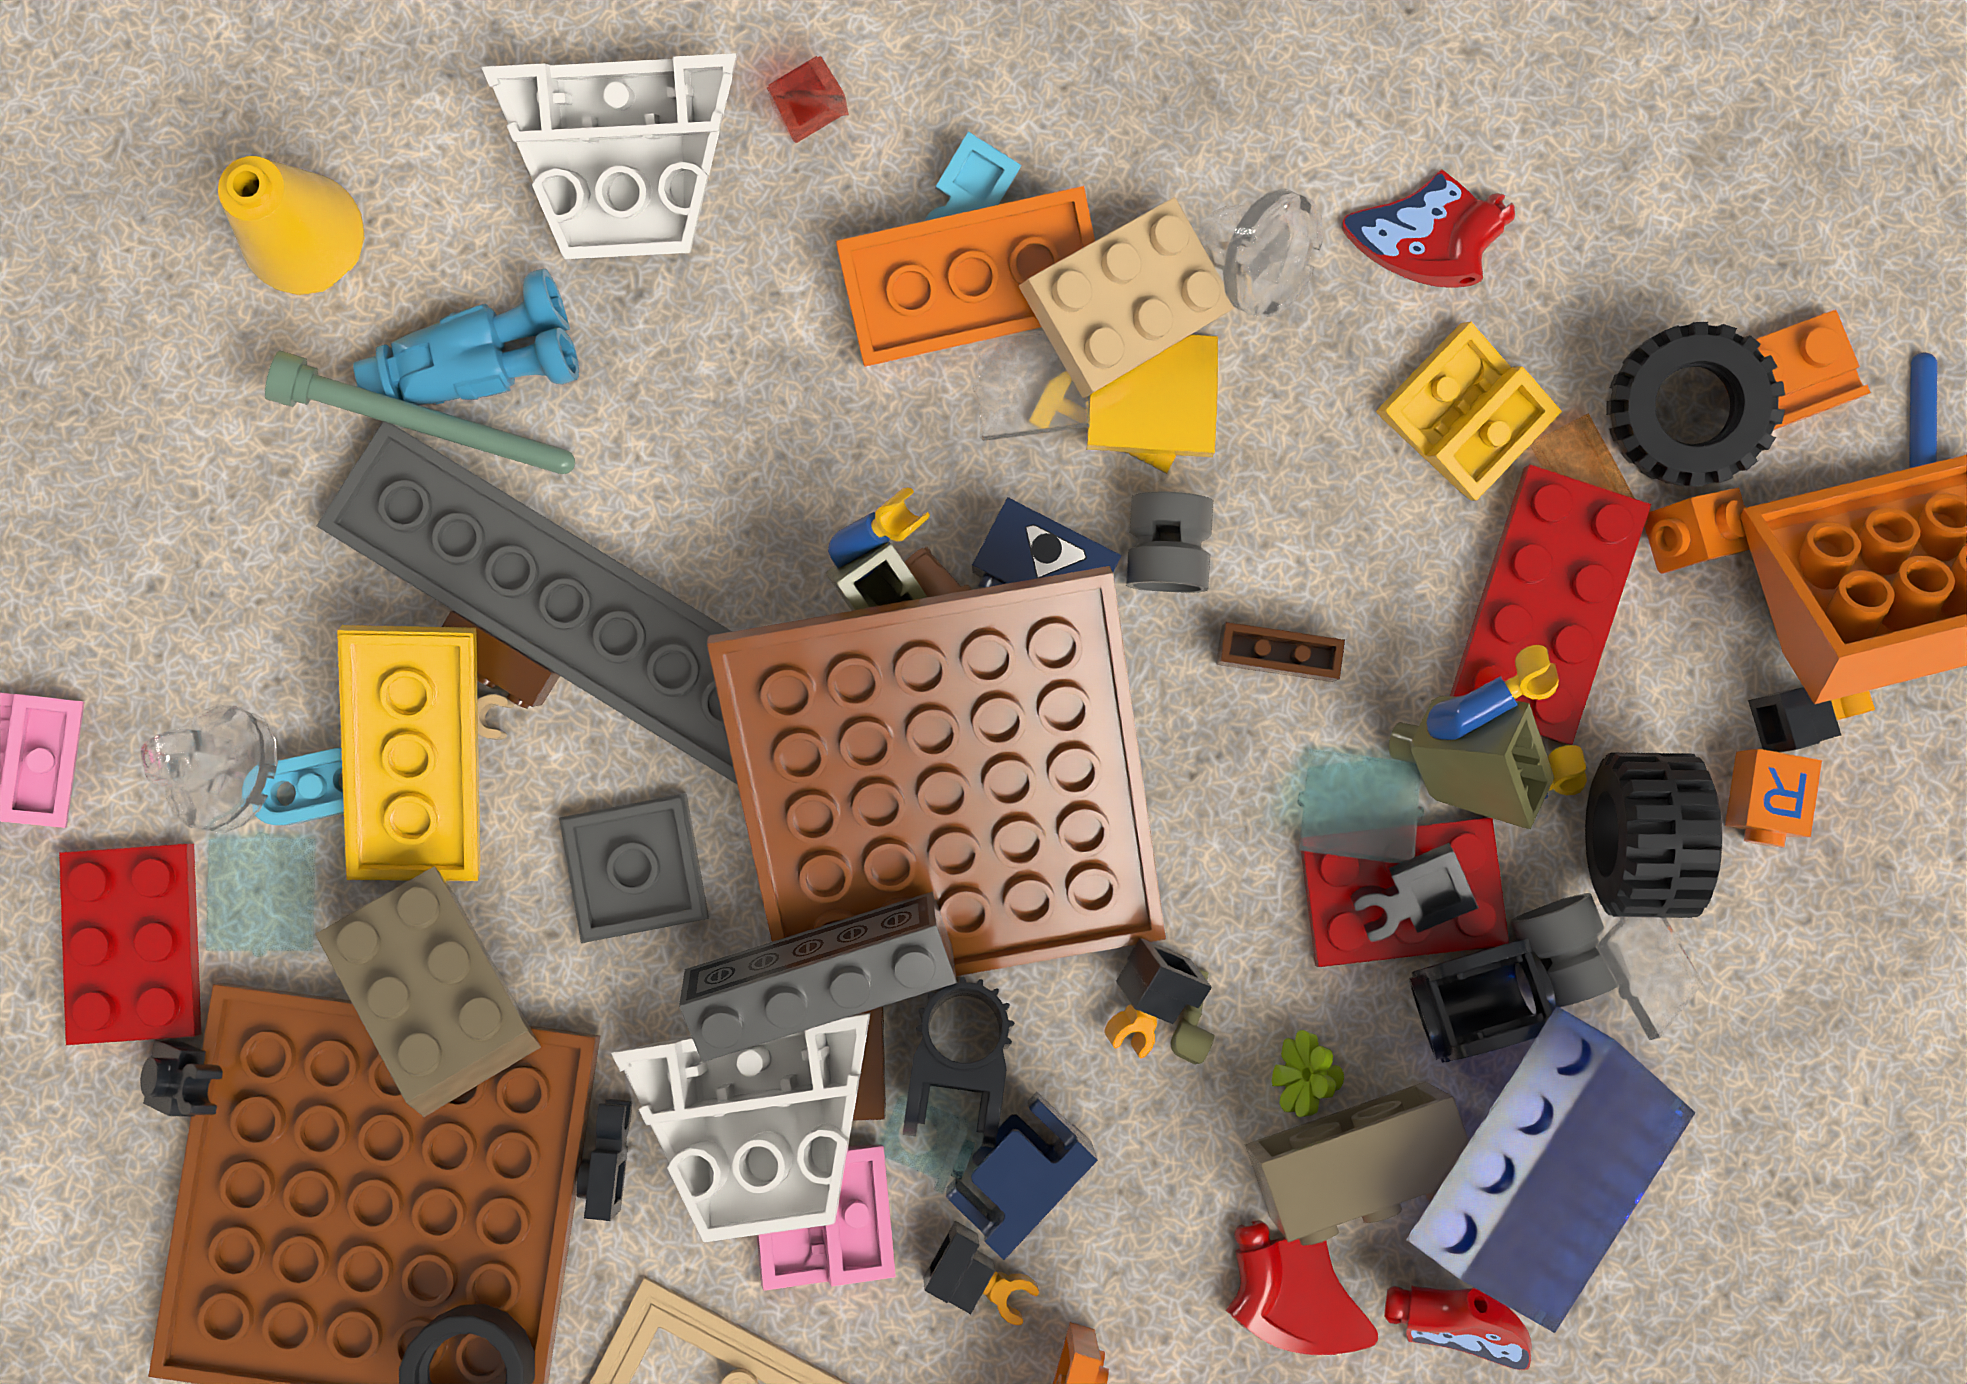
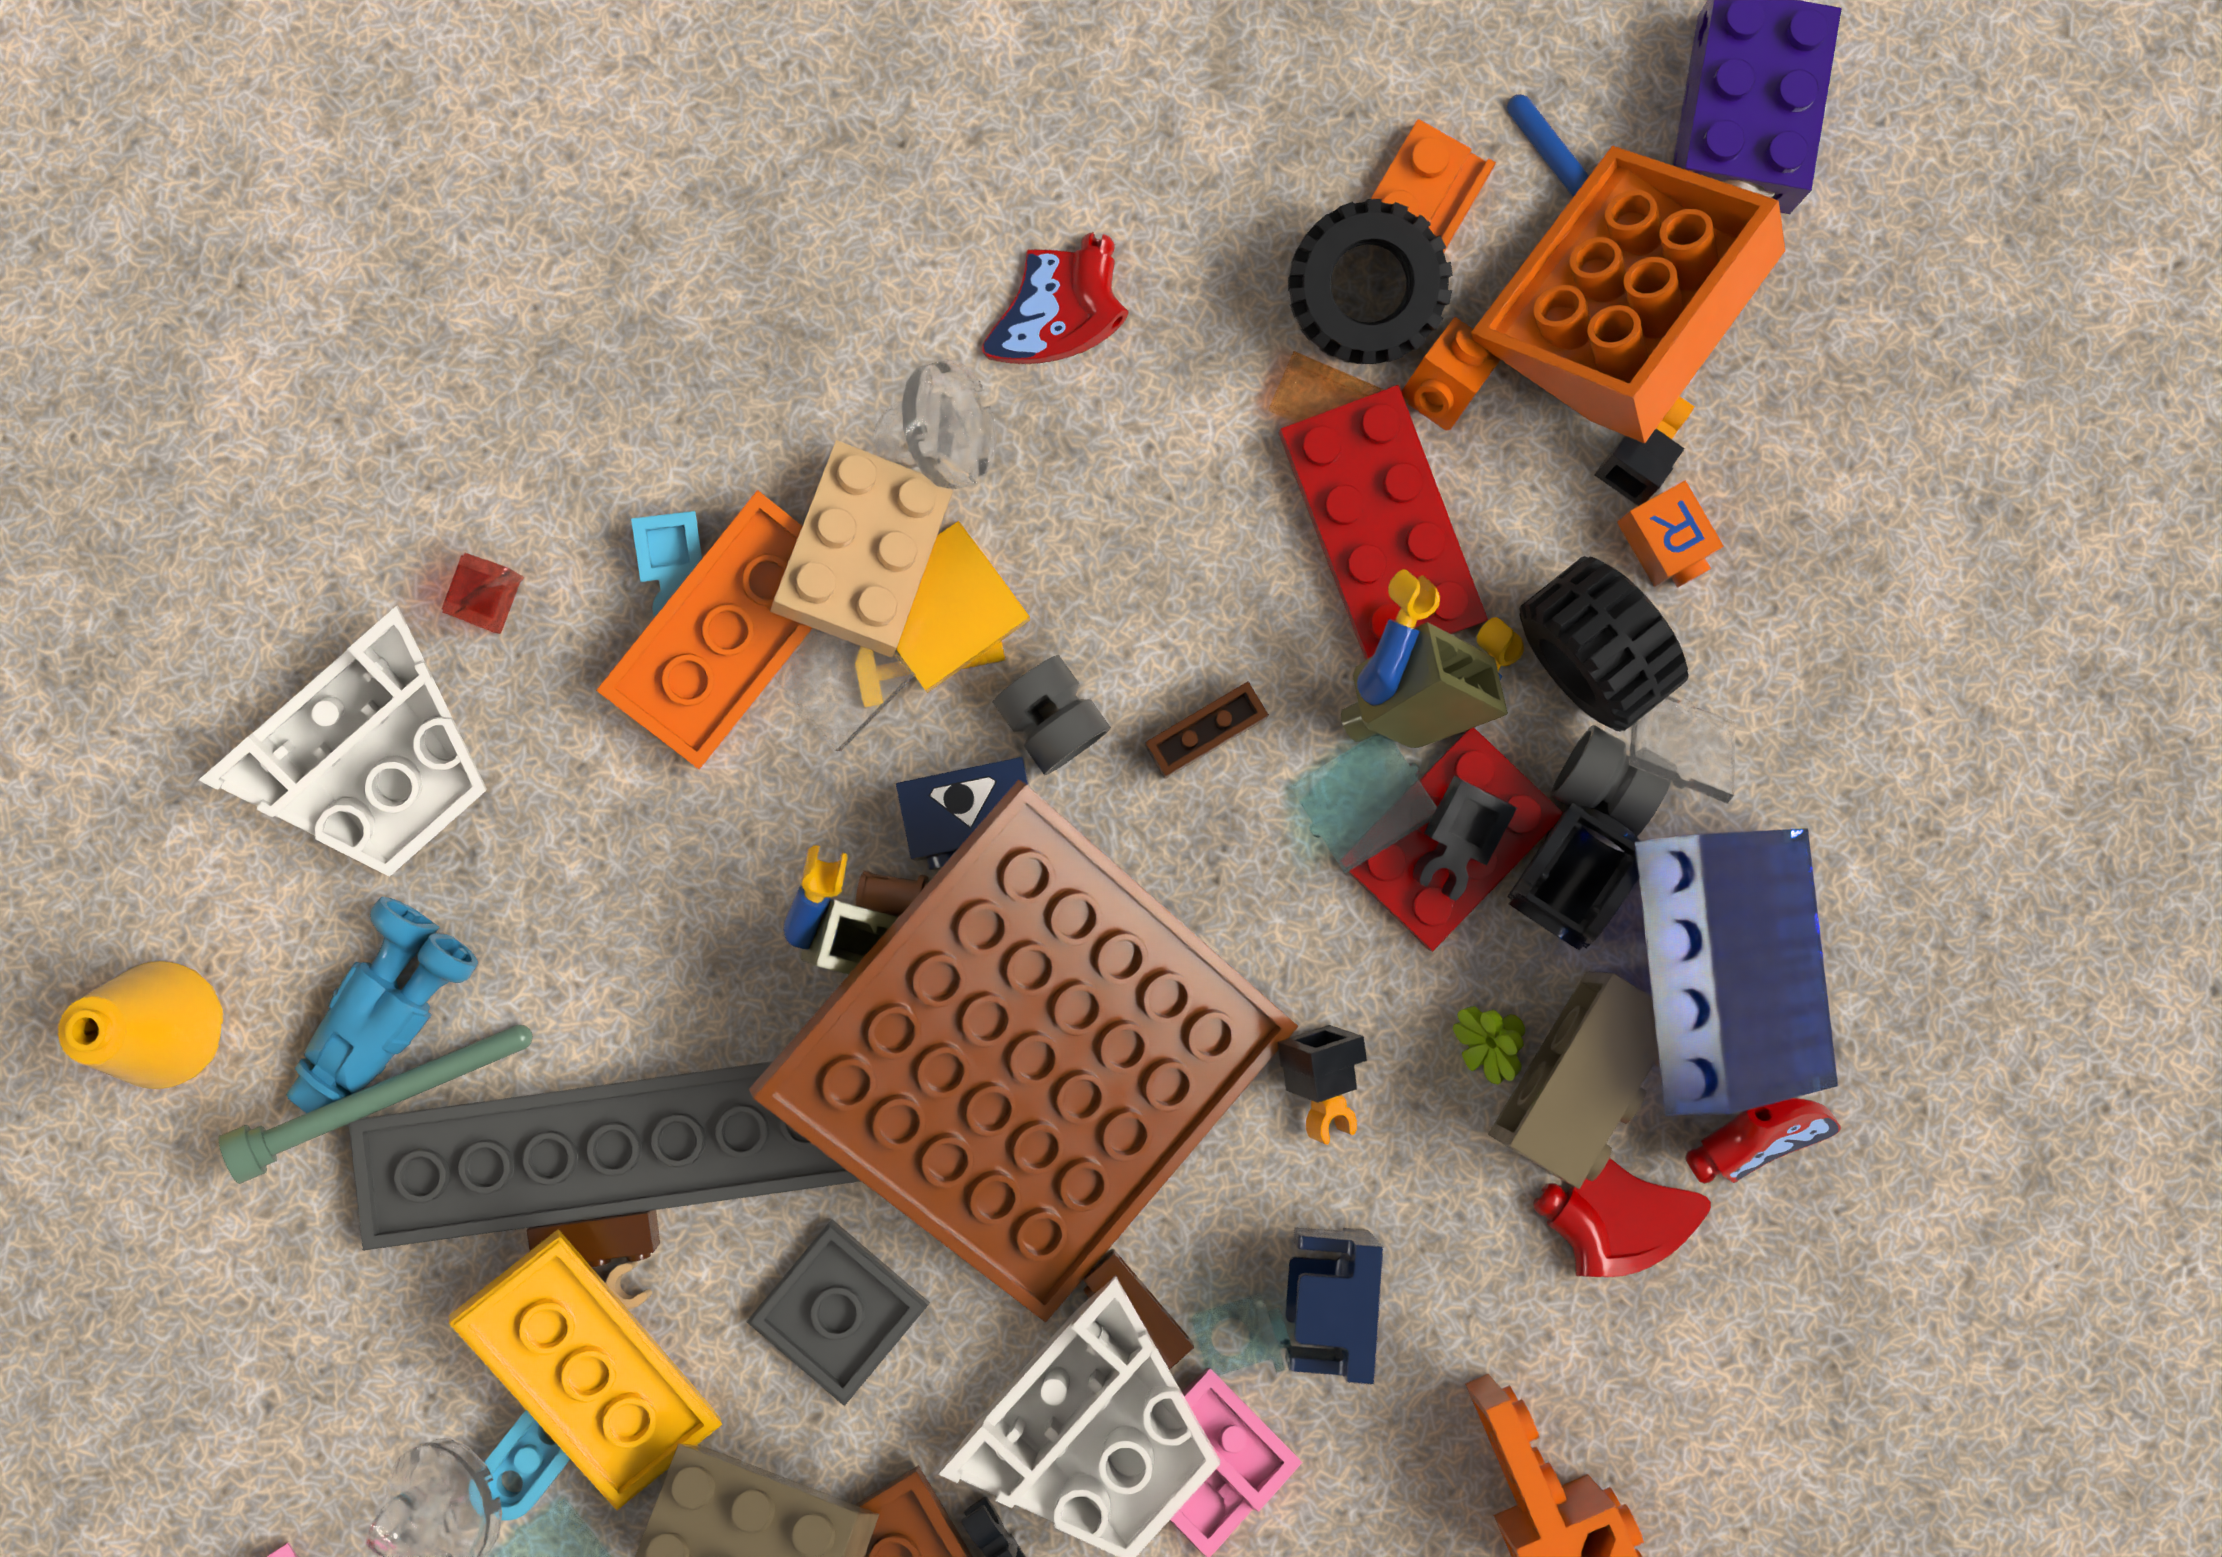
camera: 40 degrees left, 0 degrees up
(817, 977) = (1051, 1282): dark grey brick -> none
(936, 1070) = (1199, 1278): black piece -> none
(963, 1274) = (1353, 1414): black piece -> none
(1190, 1040) = (1379, 1089): olive hand -> none
(1469, 411) = (1200, 423): yellow slope -> none

